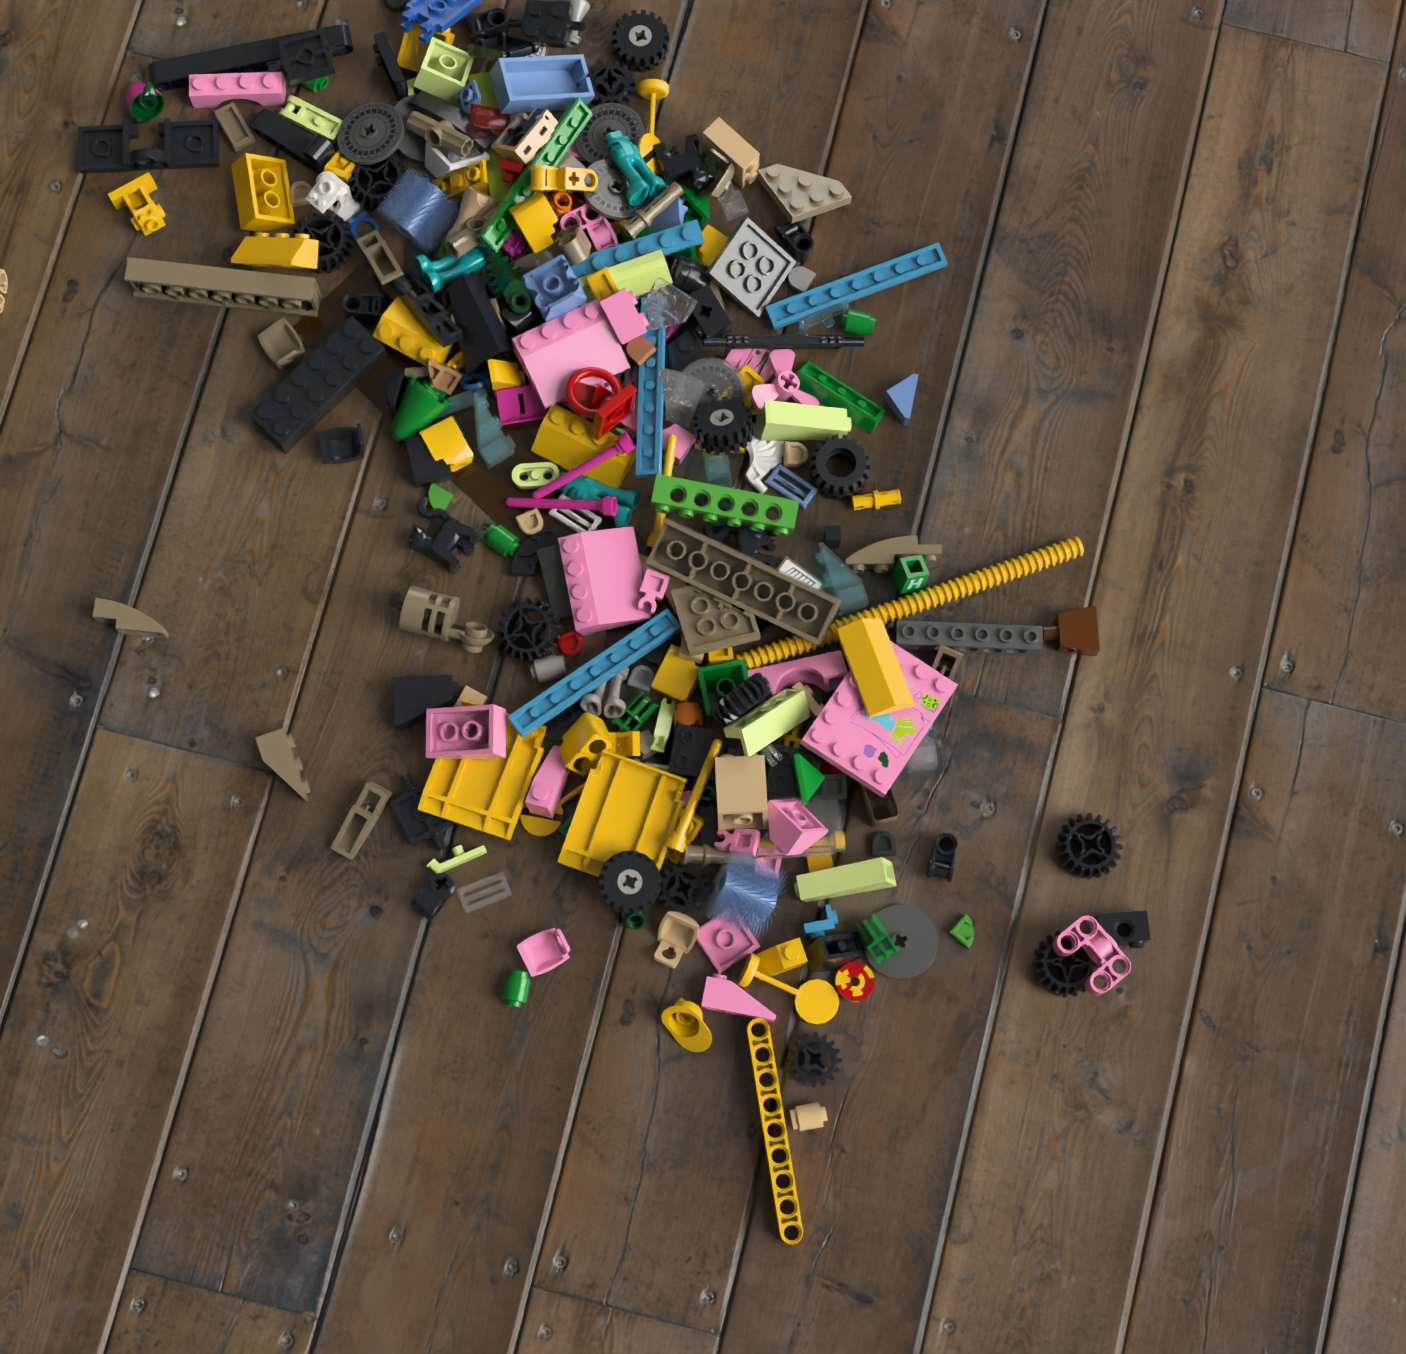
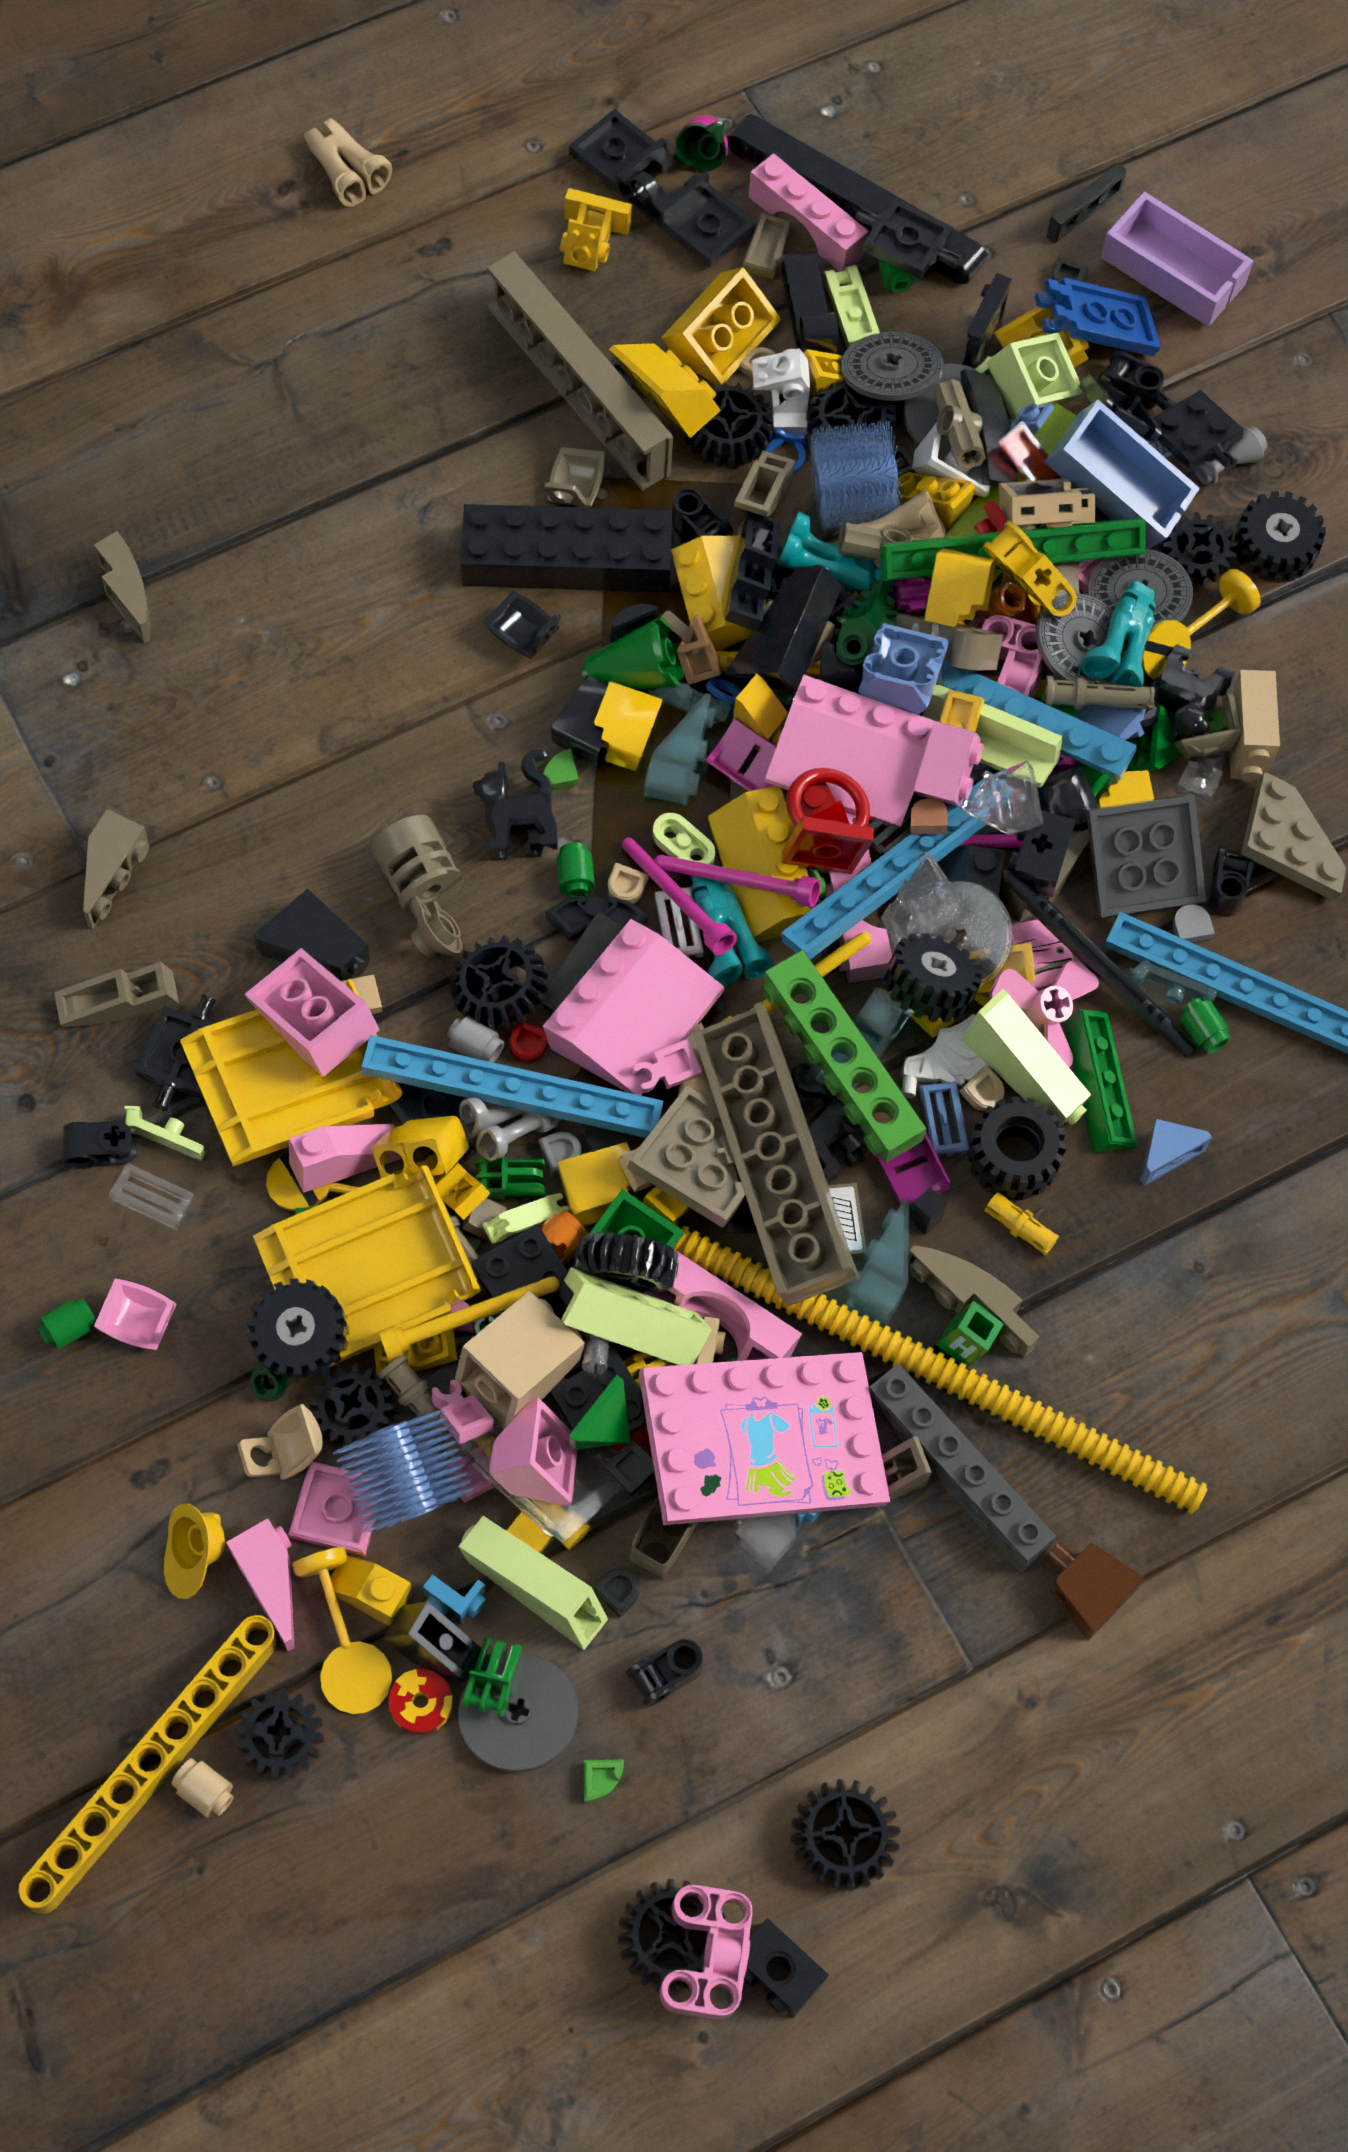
camera: 45 degrees right, 10 degrees down
(812, 526) = (915, 1181): none -> magenta piece
(874, 667) = (814, 1381): yellow slope -> none

